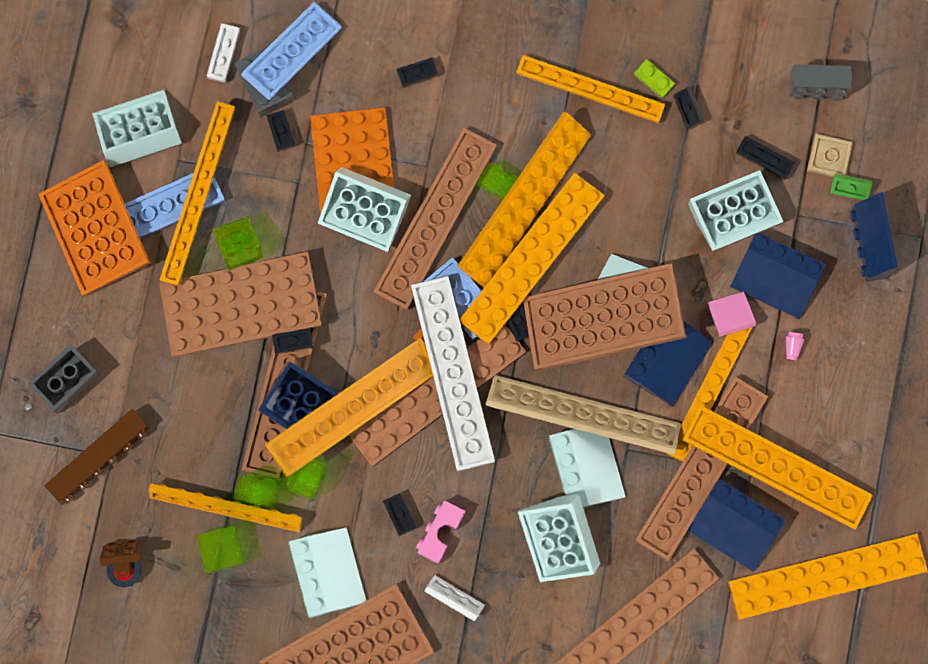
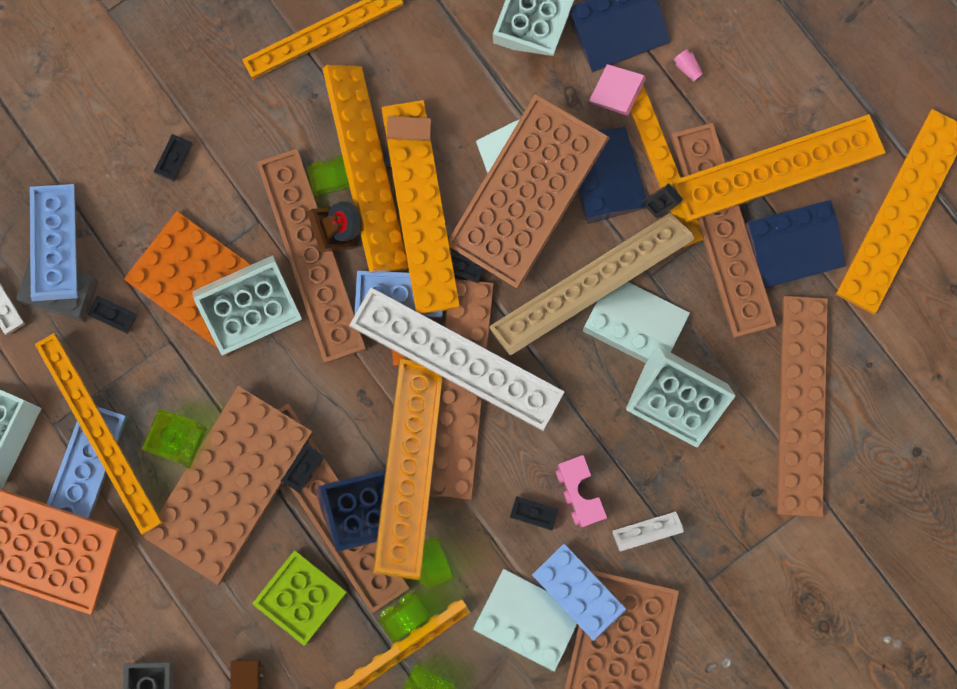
camera: 50 degrees left, 0 degrees up
(210, 415) = (299, 598): none -> lime plate
(374, 588) = (579, 592): none -> light blue plate
(466, 217) = (335, 226): none -> plate
(575, 203) = (409, 128): none -> nougat tile
(682, 411) = (662, 200): none -> black plate

